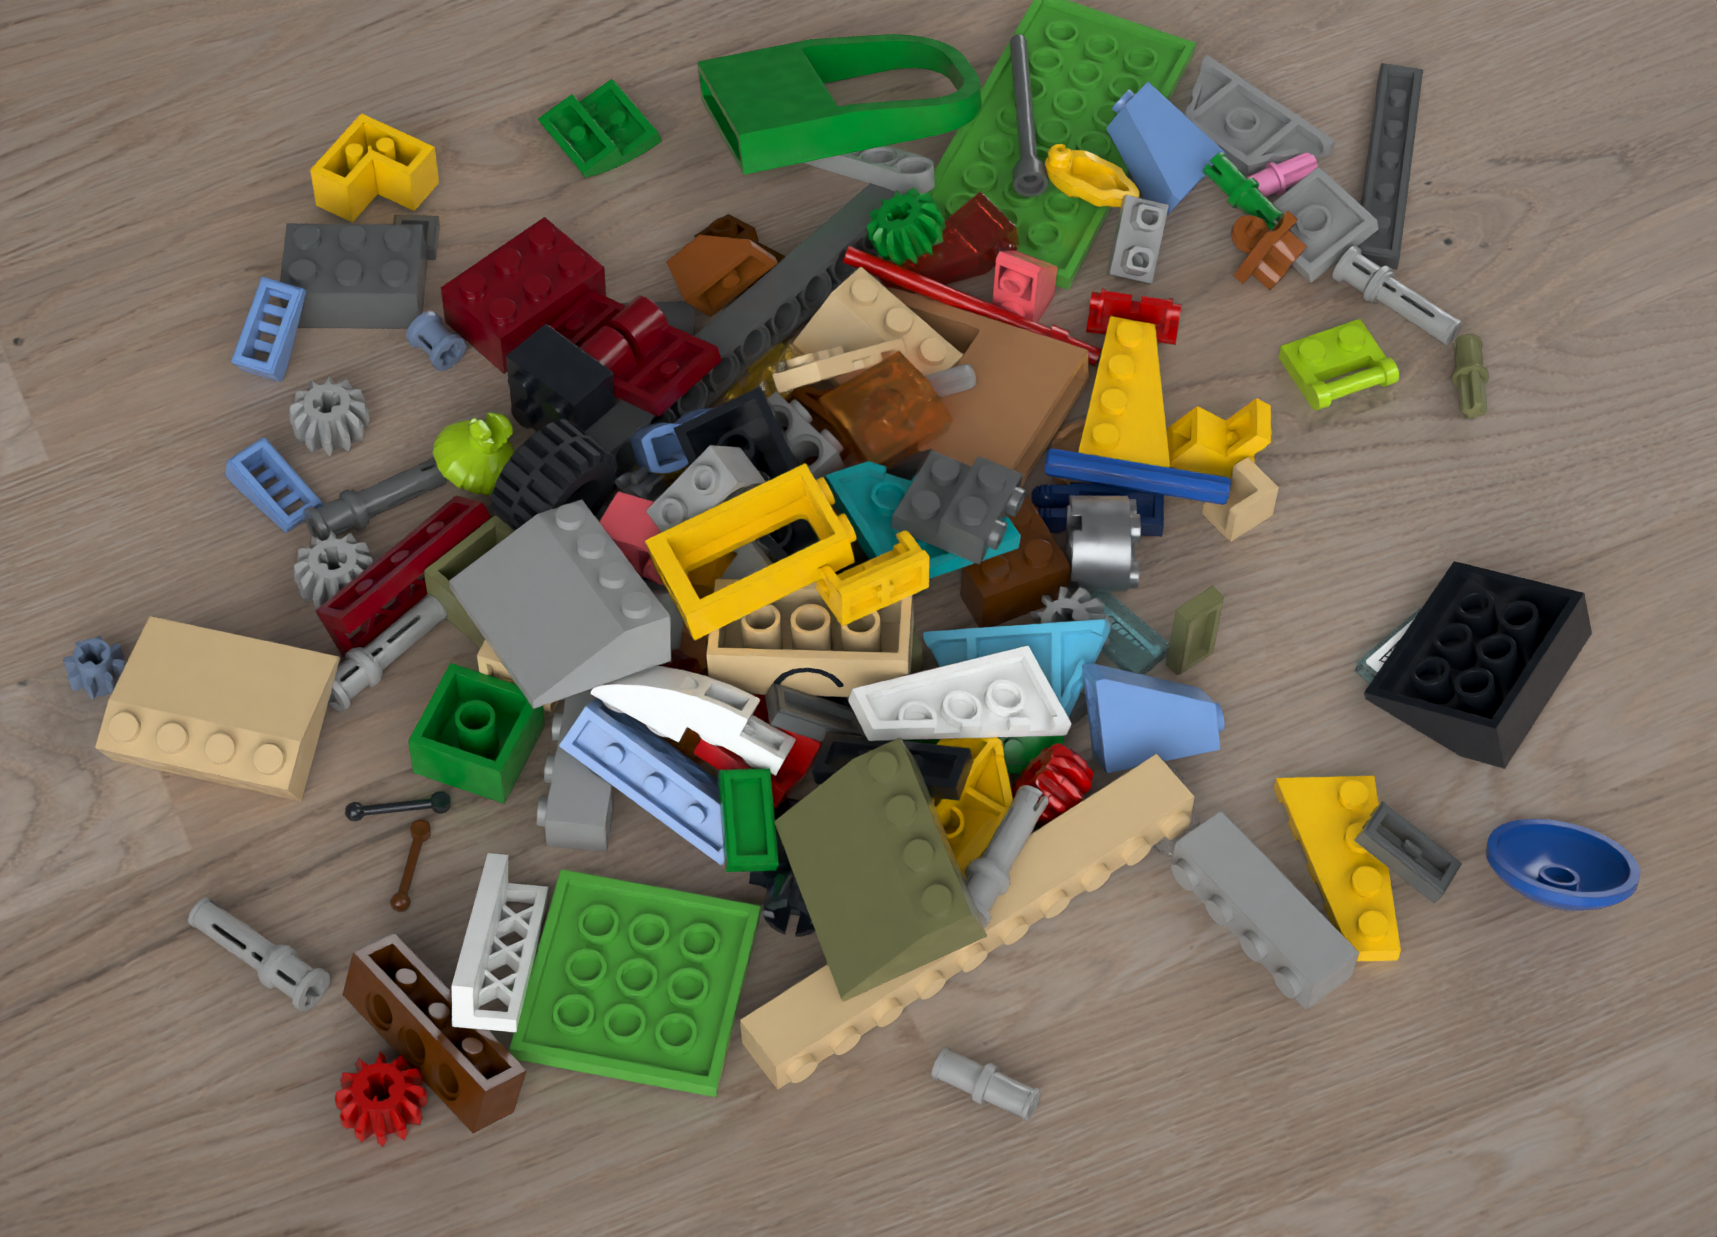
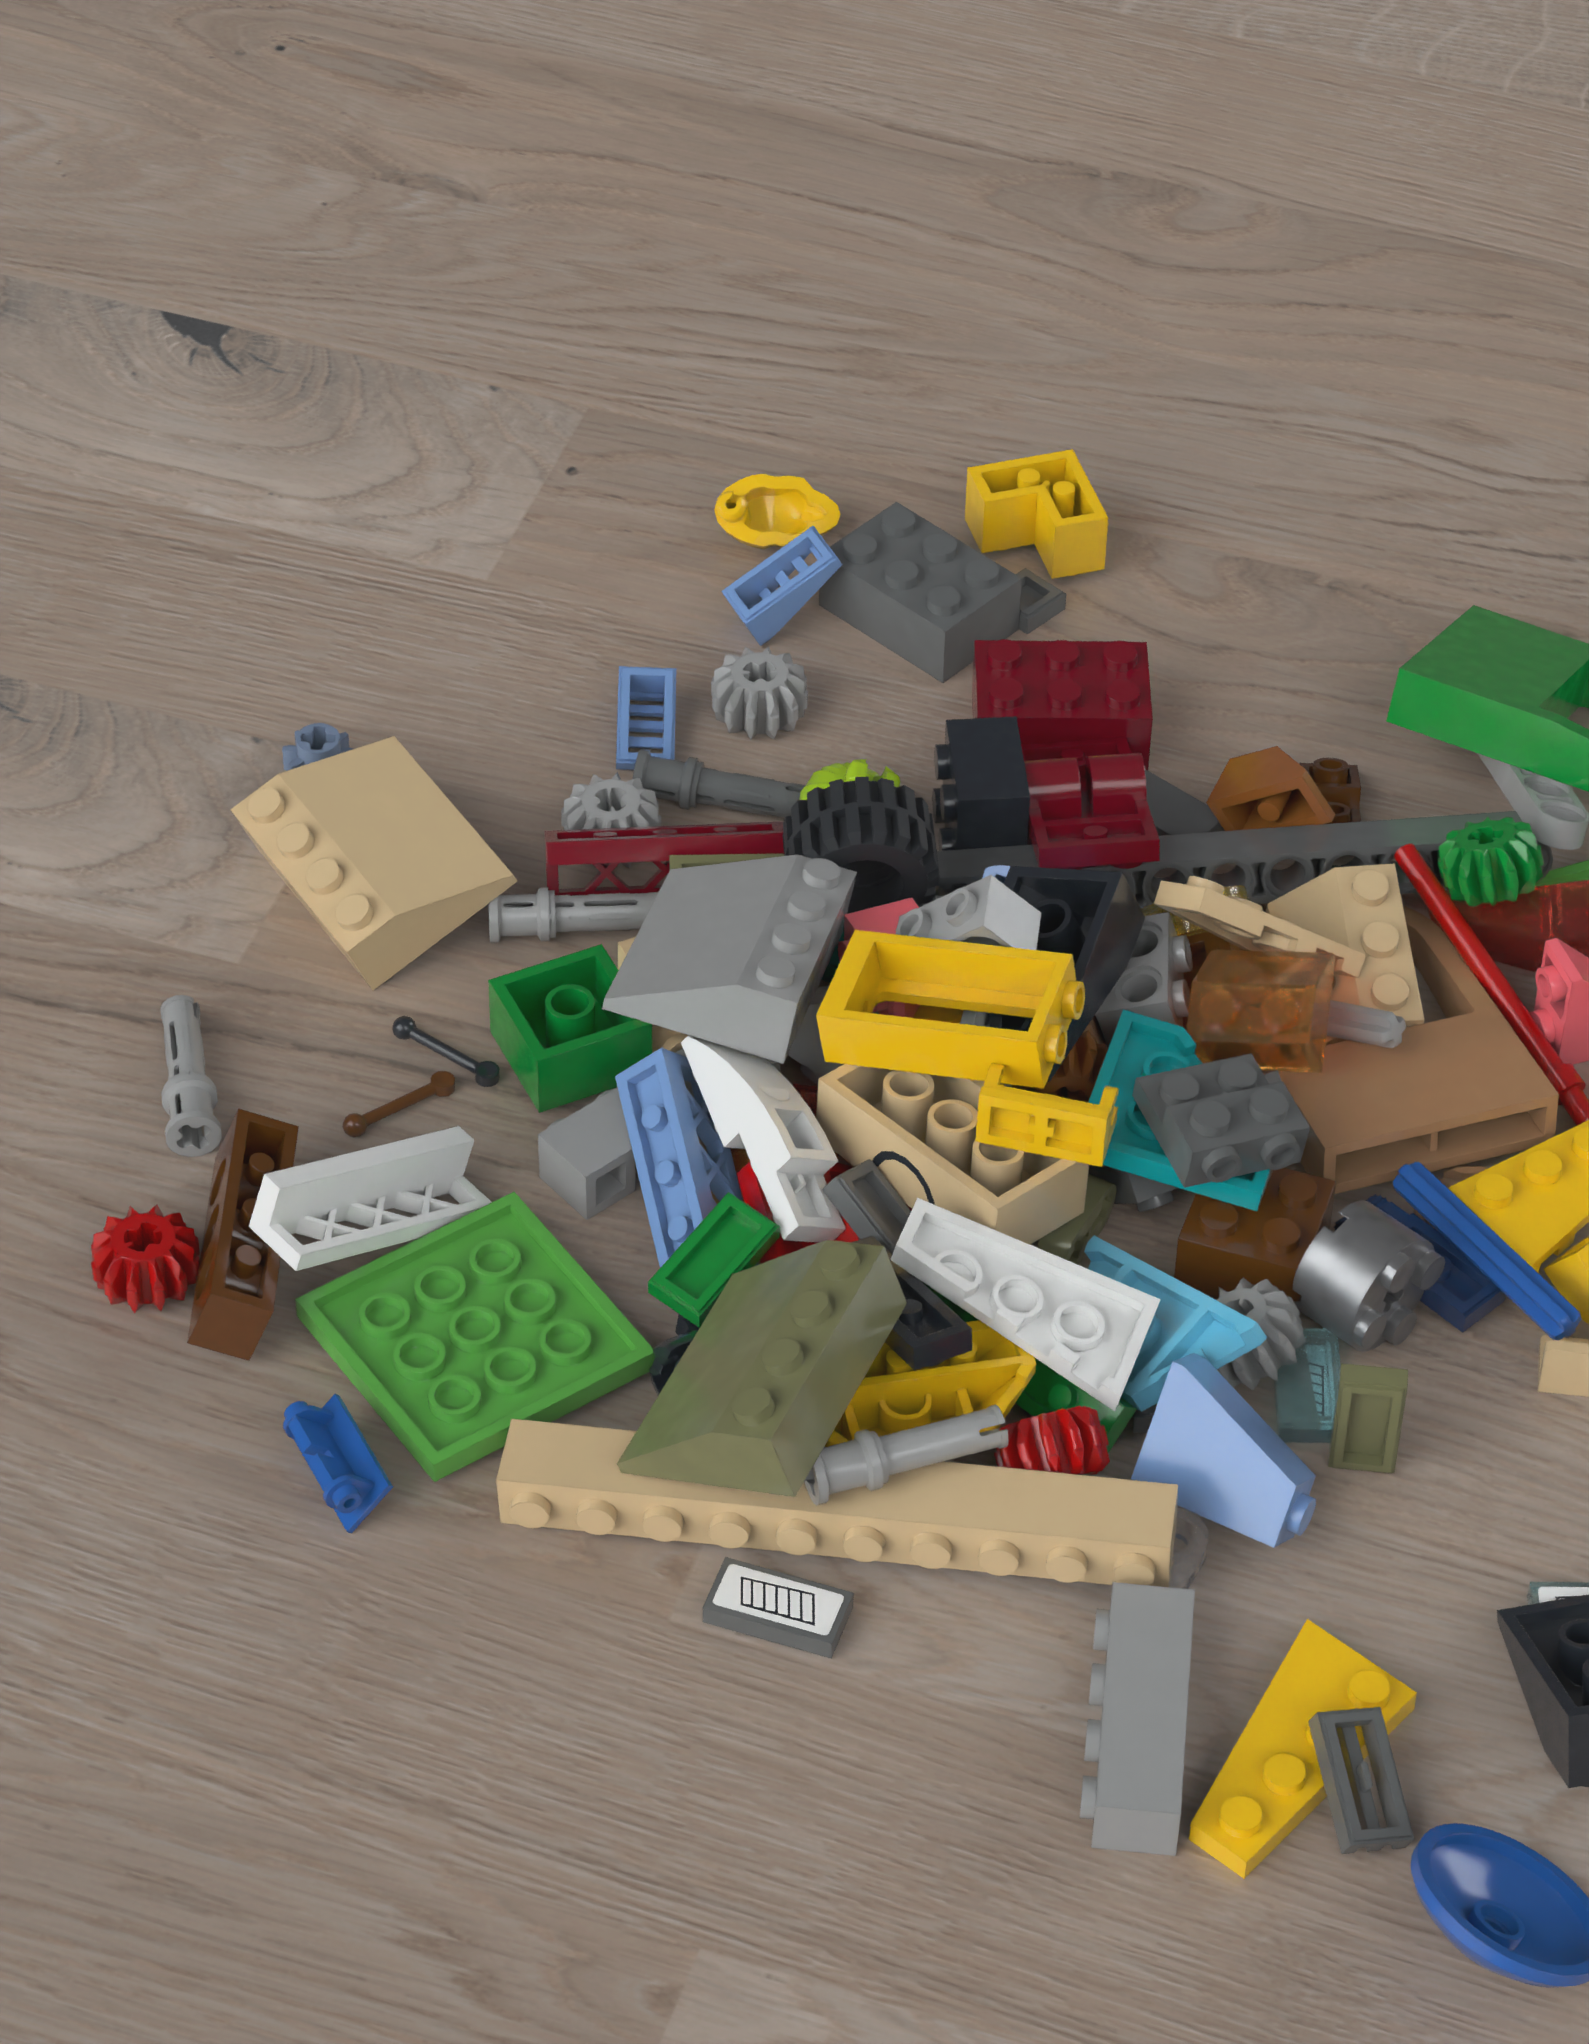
camera: 45 degrees right, 10 degrees down
(200, 282) = (773, 510): none -> yellow arm
(436, 340) = (934, 685): sand blue bush -> none
(600, 129) = (1317, 619): green slope -> none
(653, 1131) = (338, 1458): none -> blue hinge
(986, 1084) = (686, 1657): light grey pin -> none
(996, 1009) = (778, 1607): none -> tile

